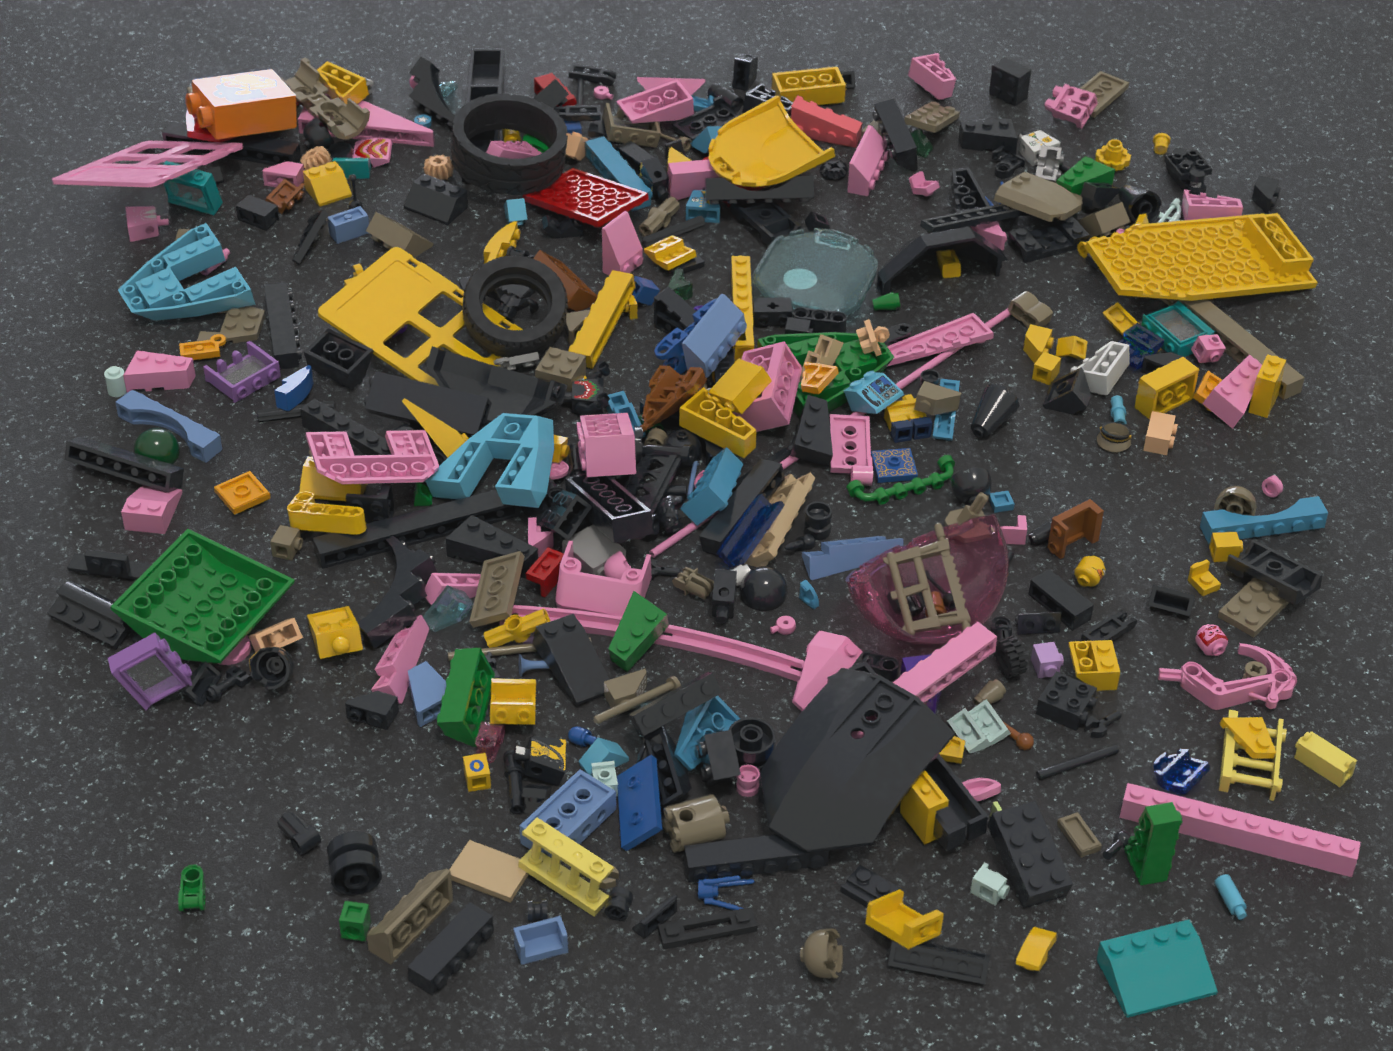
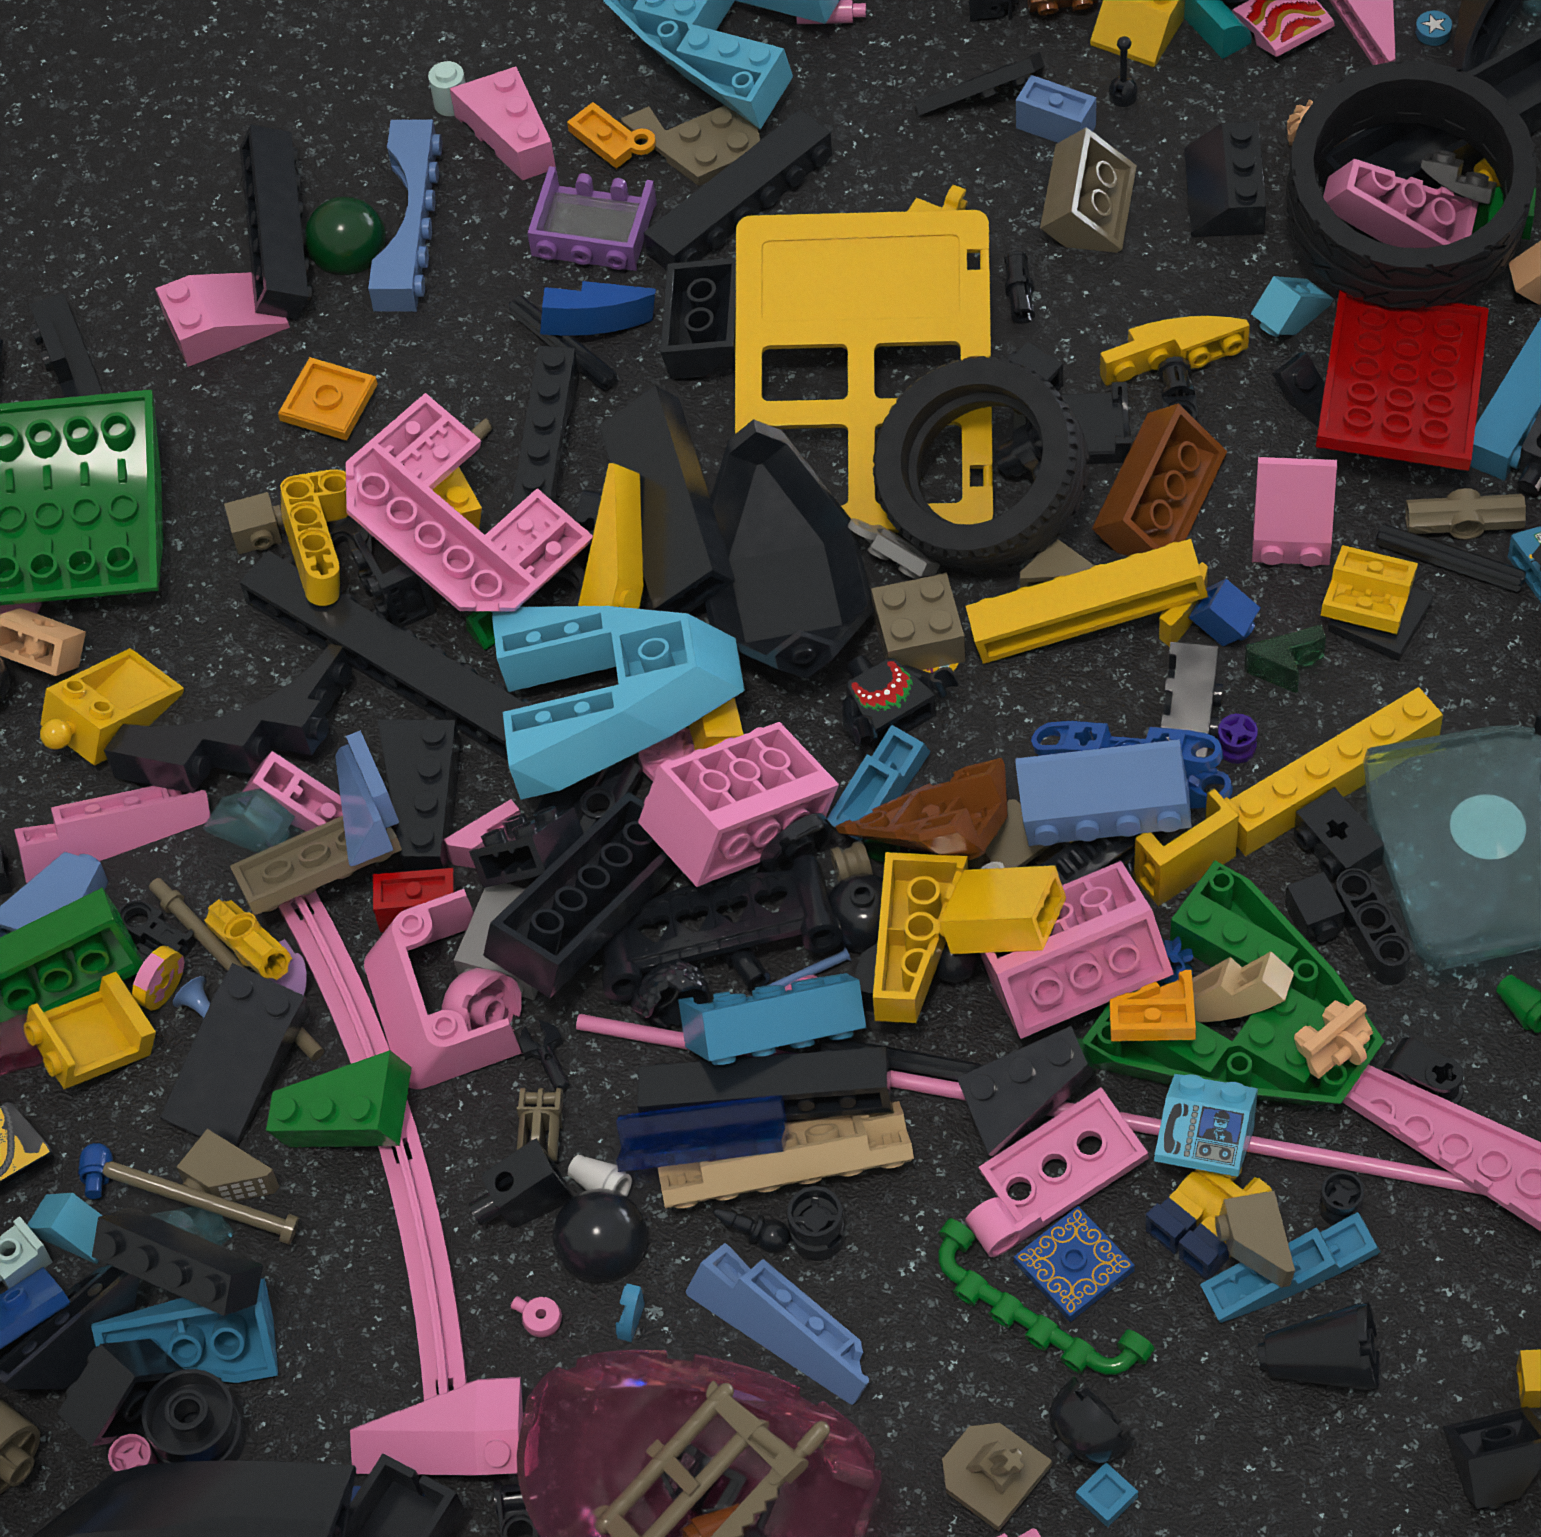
camera: 65 degrees right, 15 degrees up
(483, 555) = (363, 802): none -> medium blue wedge
(505, 666) = (158, 977): none -> piece
(514, 136) = (1447, 171): none -> flat silver slope

